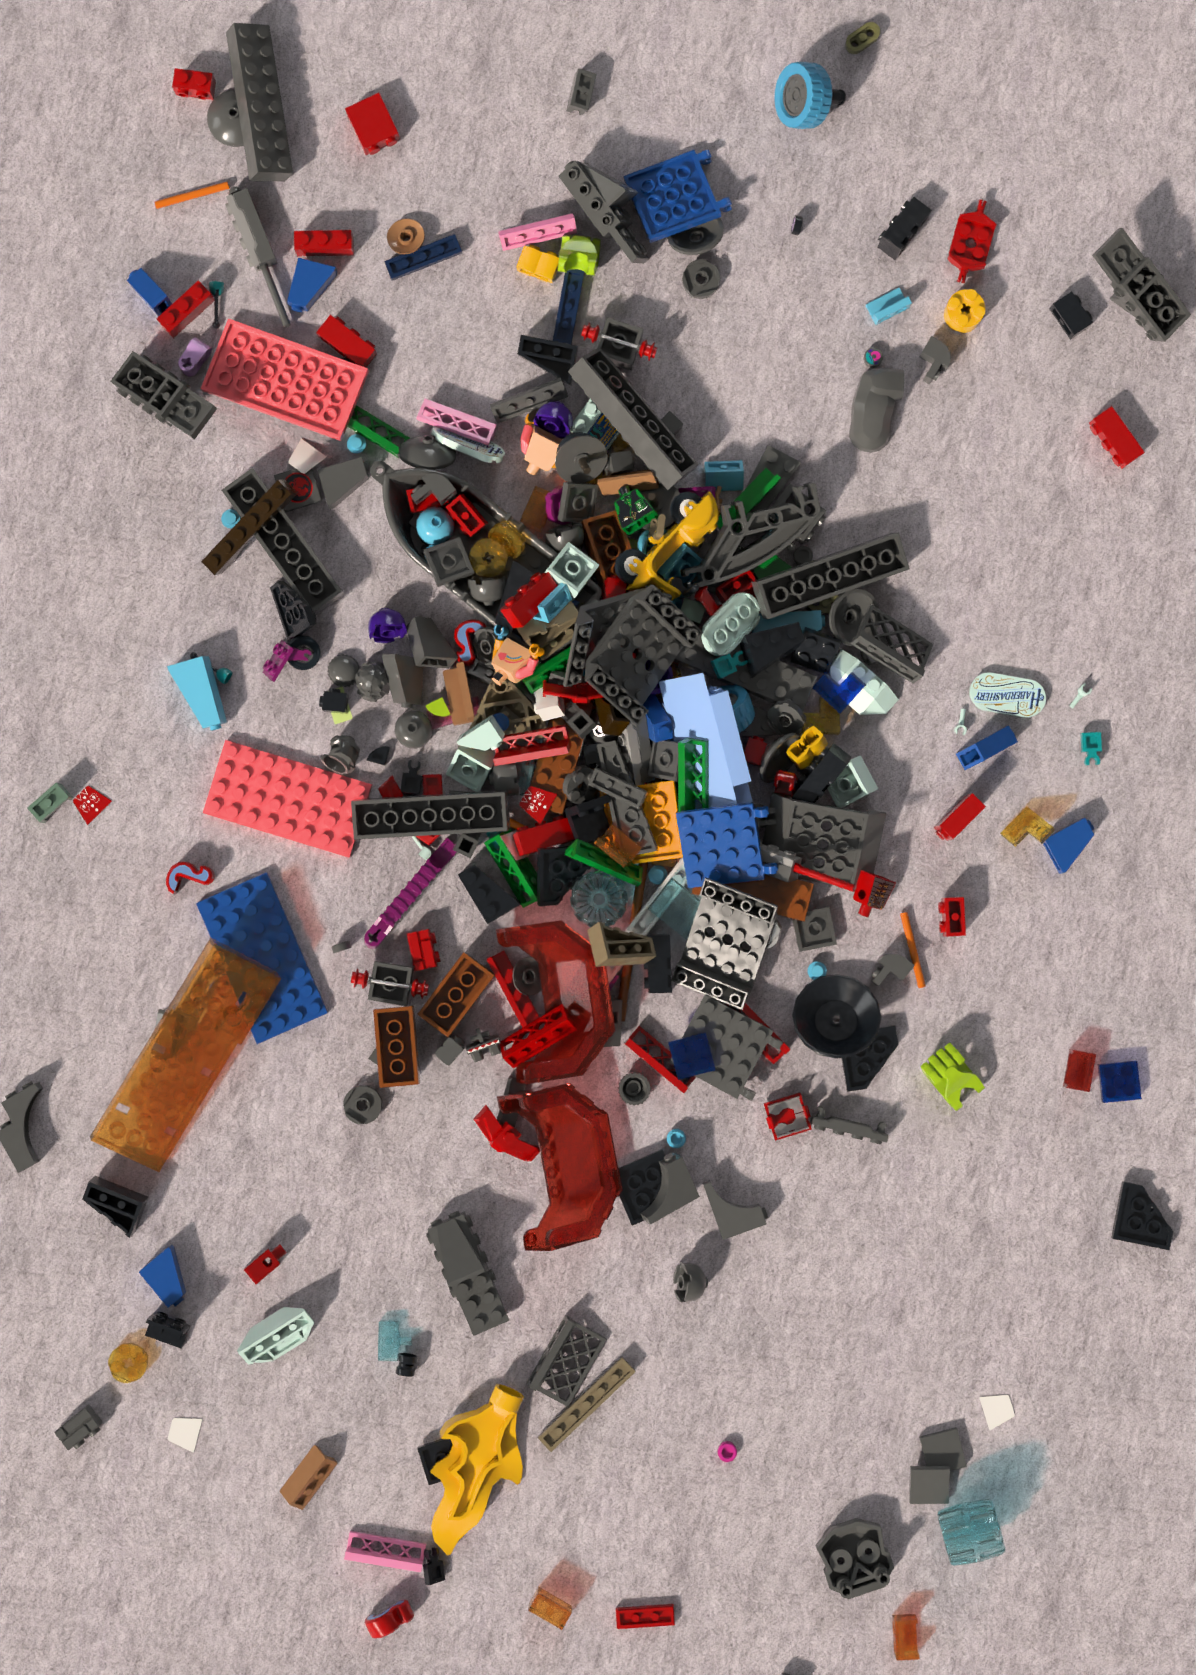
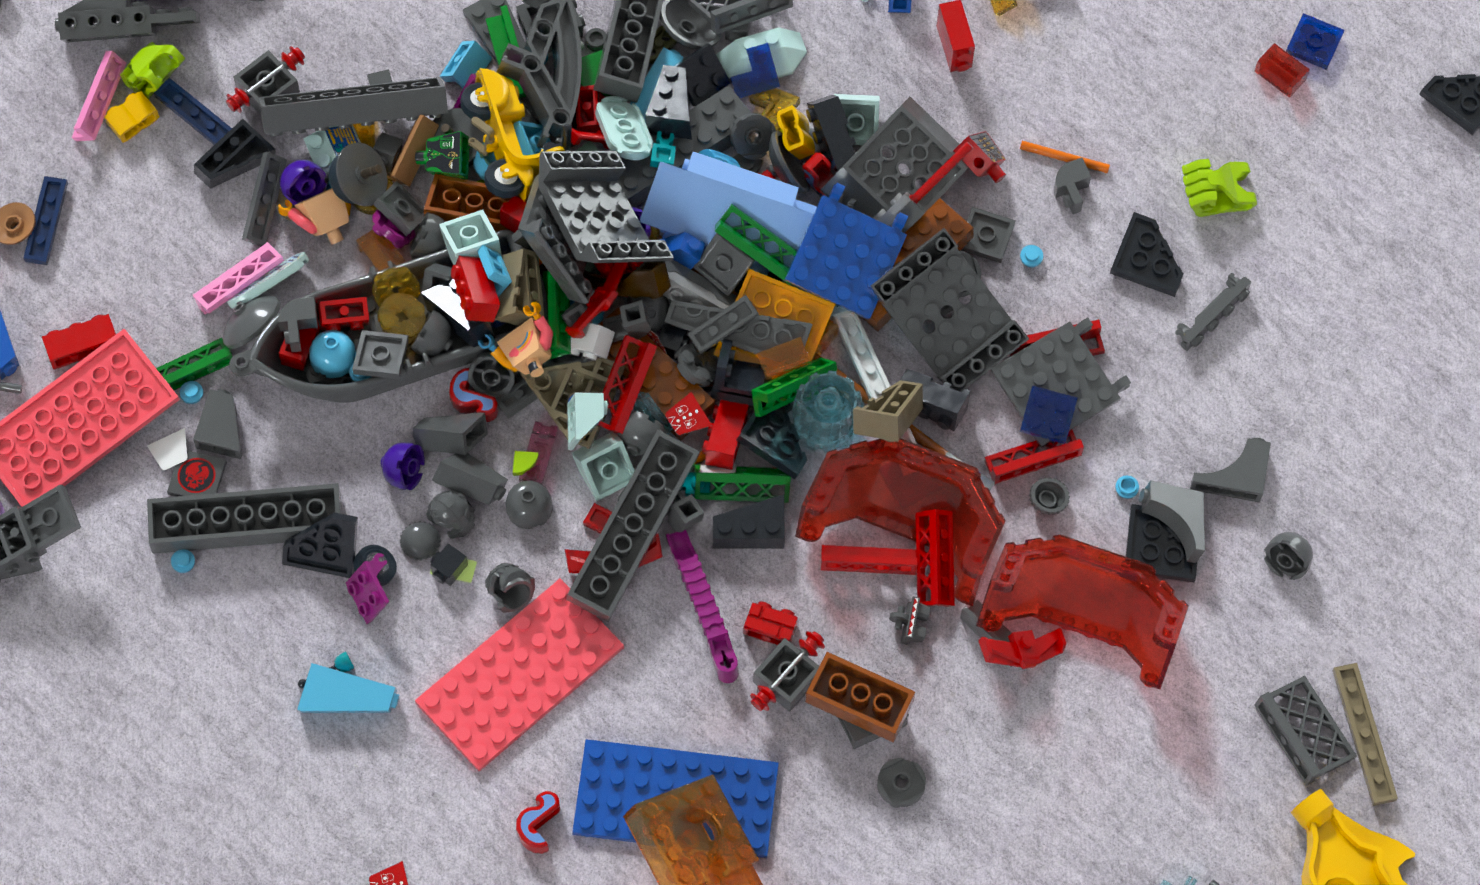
camera: 55 degrees left, 20 degrees down
(235, 540) = (207, 537): dark brown arch -> none
(341, 947) = (715, 706): dark grey tile -> none
(379, 755) = (534, 555): black tile -> none
(411, 781) = (582, 535): black plate -> none
(425, 853) = (666, 564): light aqua hand -> none
(450, 1049) = (896, 652): dark grey brick -> none
(456, 994) = (840, 613): dark orange brick -> none
(459, 695) = (523, 432): medium nougat panel -> none
(467, 1271) = (1148, 772): dark grey wedge -> none
(531, 984) = (865, 534): dark grey dish -> none
(535, 561) = (436, 275): none -> dark grey panel
(657, 874) = (836, 351): medium azure plate -> none
(676, 907) = (884, 348): clear light blue piece -> none
(787, 1116) = (1167, 365): piece -> none
(841, 999) = (1087, 239): black dish -> none
(952, 916) = (1053, 97): red brick -> none

